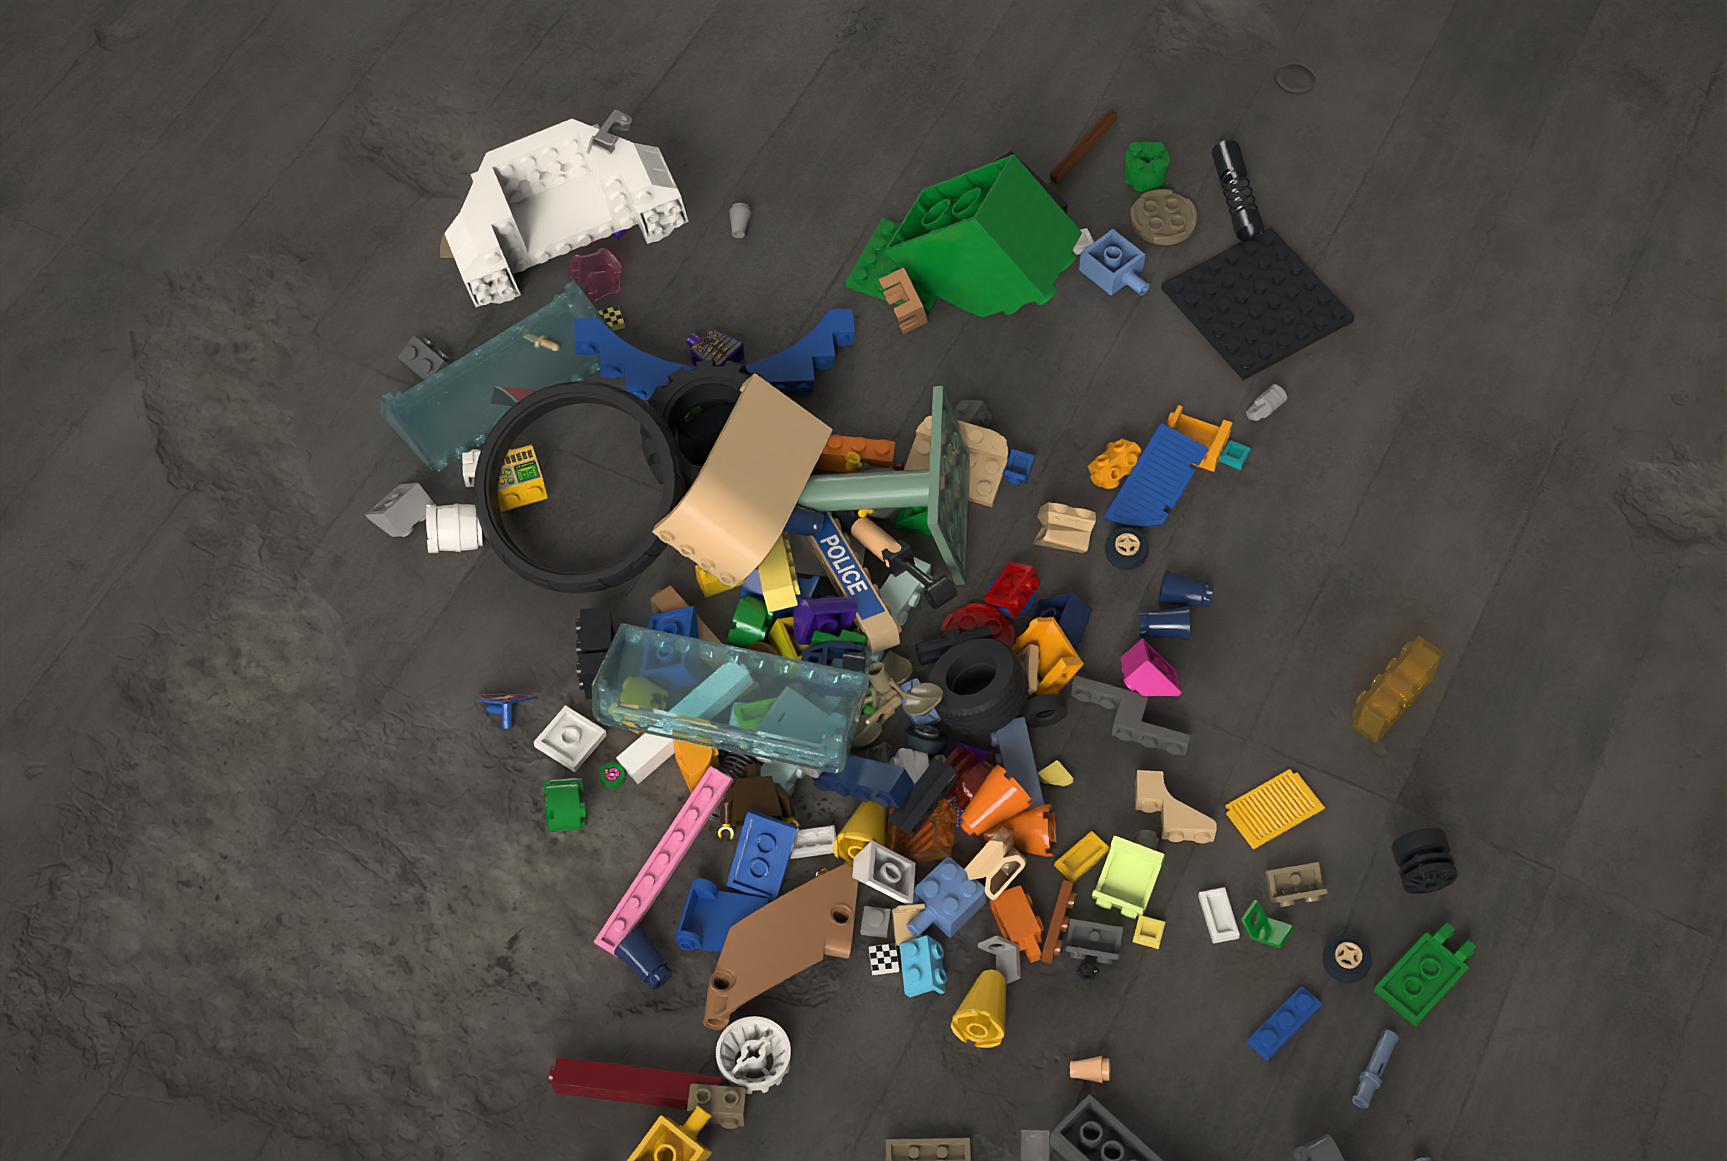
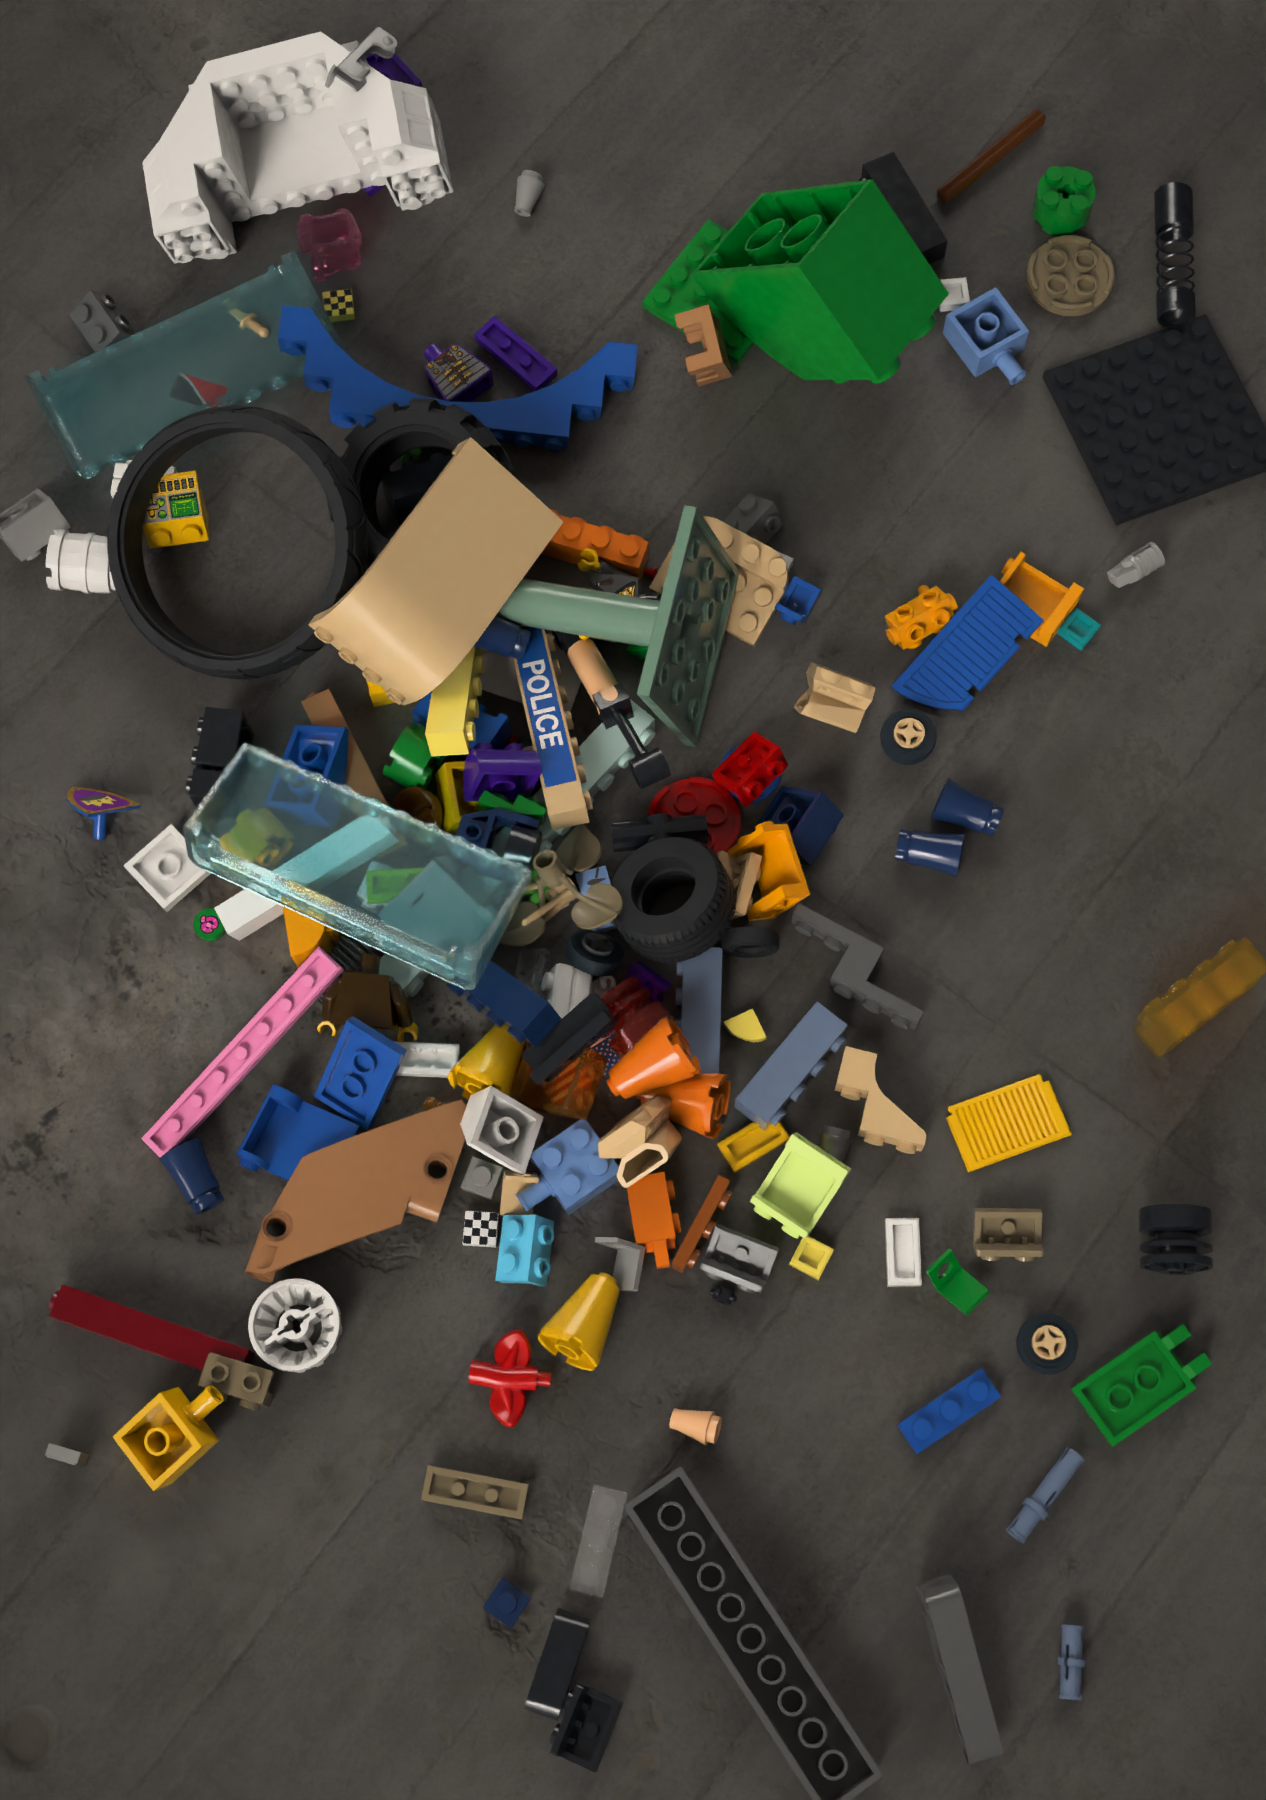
camera: 15 degrees right, 15 degrees up
(564, 804) = (138, 957): green brick -> none
(757, 331) = (515, 354): none -> dark purple plate
(933, 1062) = (509, 1377): none -> red plant
(1098, 794) = (790, 1067): none -> sand blue brick
(1149, 672) = (893, 916): dark pink slope -> none

